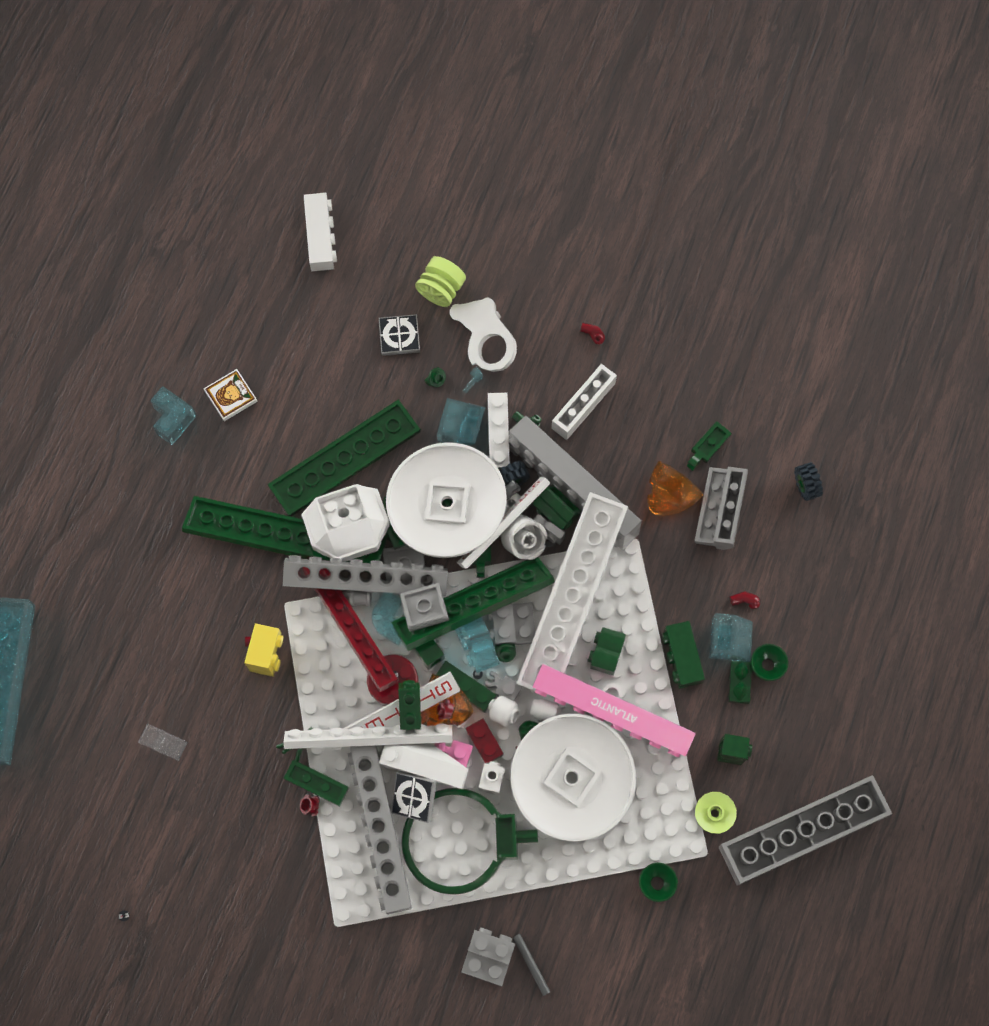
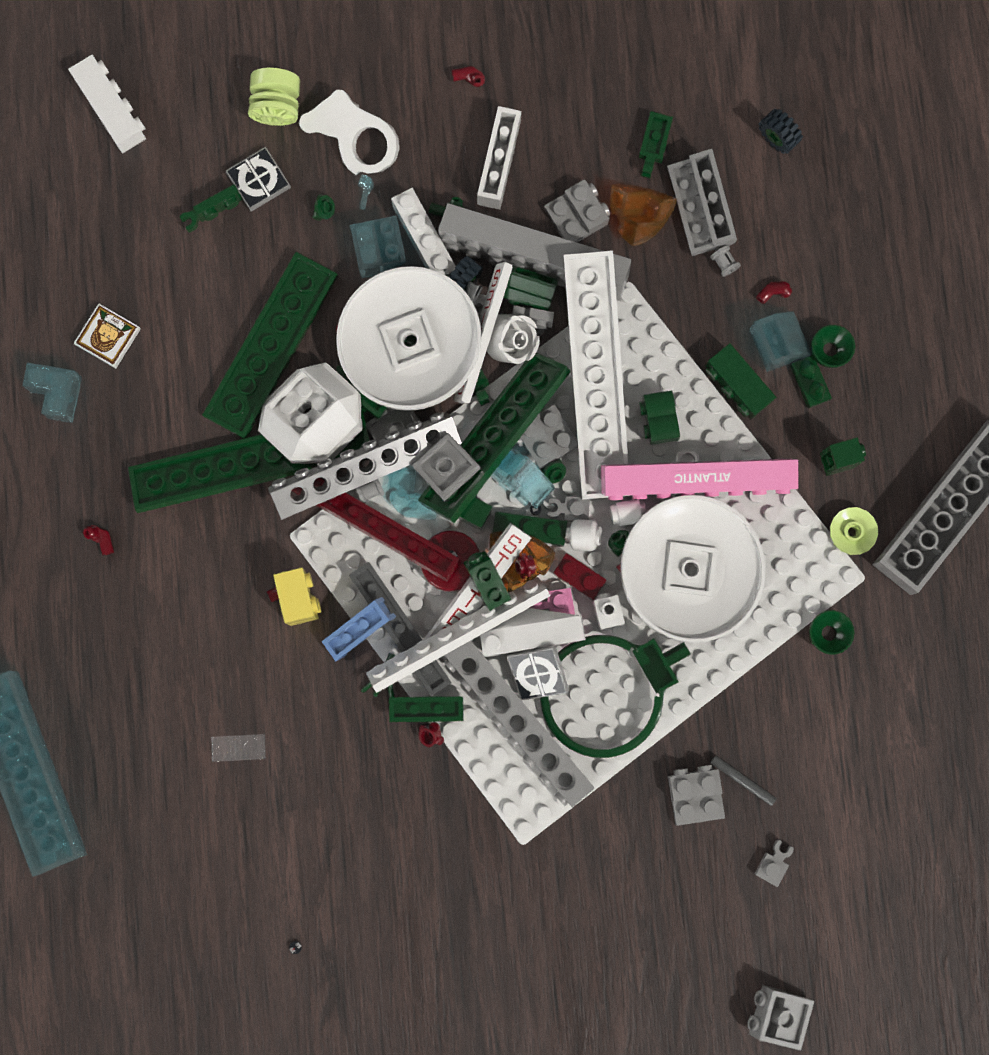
camera: 30 degrees left, 10 degrees up
(147, 536) = (100, 536): none -> dark red arm
(296, 696) = (358, 629): none -> medium blue container
(328, 709) = (400, 627): none -> dark grey plate
(354, 338) = (209, 208): none -> dark green plate
(624, 470) = (578, 212): none -> light grey plate
(718, 558) = (725, 261): none -> light grey bush

